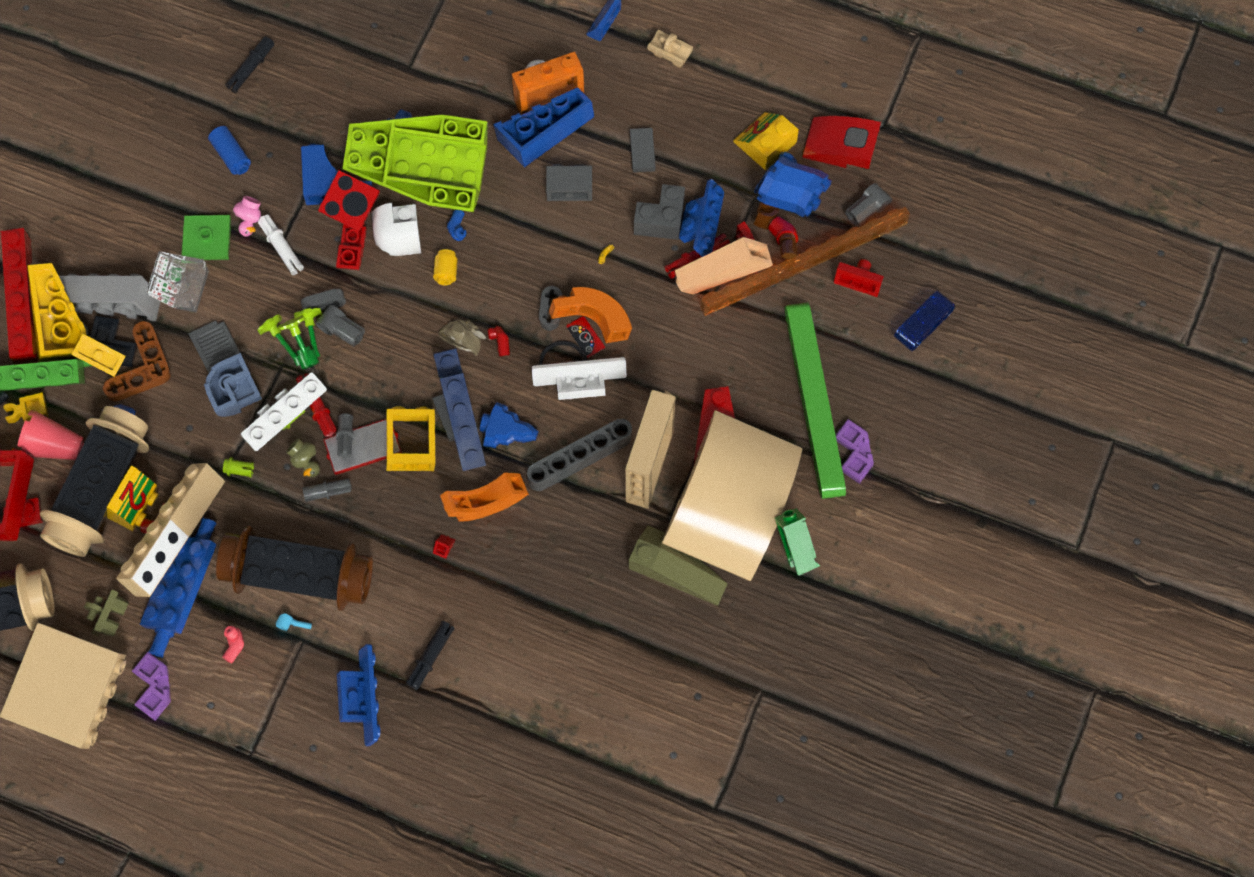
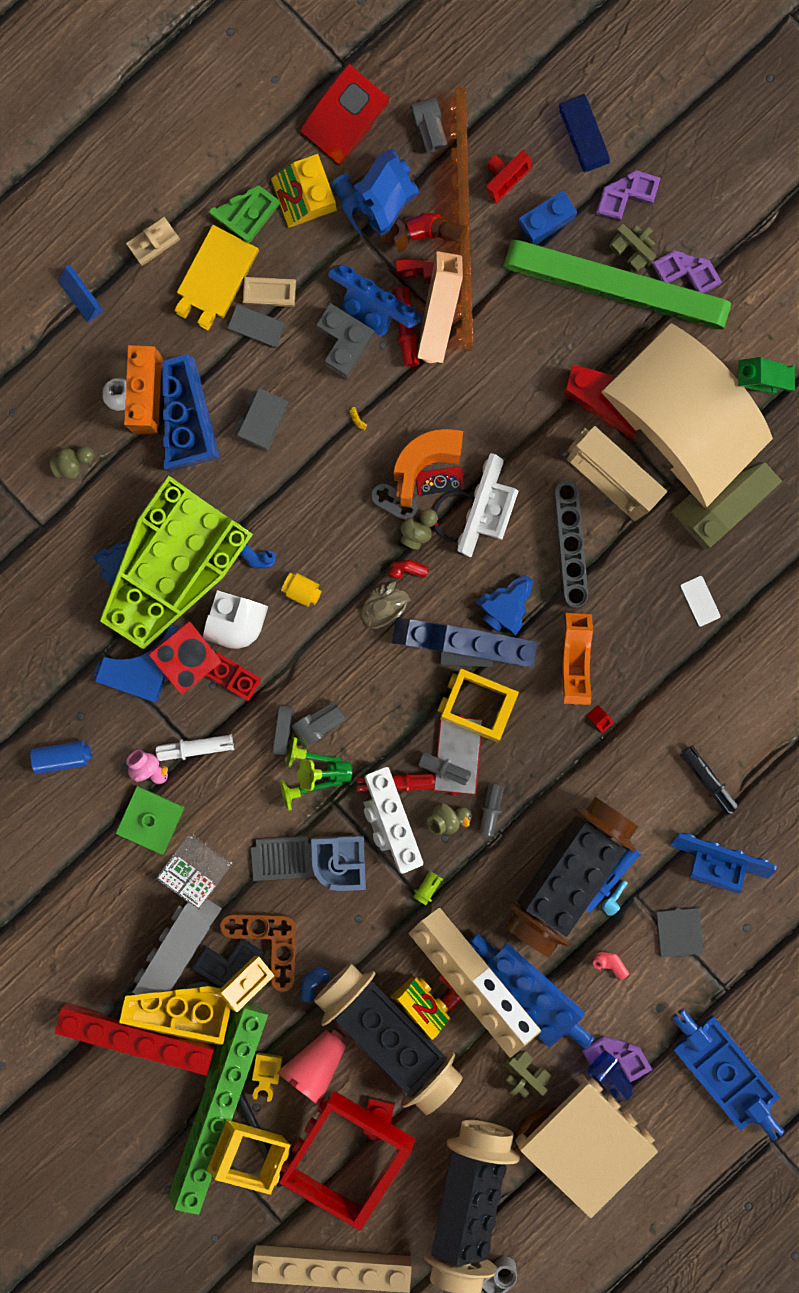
camera: 65 degrees left, 20 degrees up
(134, 676) = (607, 1072): none -> clear blue piece
(175, 783) = (727, 1073): none -> blue plate
(285, 692) = (680, 932): none -> dark grey piece
(309, 610) = (622, 866): none -> blue pin
(469, 62) = (68, 461): none -> olive animal
(533, 333) = (417, 533): none -> olive animal
(583, 584) = (700, 601): none -> white sticker
(665, 105) = (215, 276): none -> yellow tile
(674, 148) = (269, 291): none -> tan tile
(728, 105) = (246, 212): none -> bright green wing
(839, 321) = (547, 218): none -> blue brick
(853, 387) = (638, 243): none -> olive hips
(904, 380) = (634, 186): none -> medium lavender tile

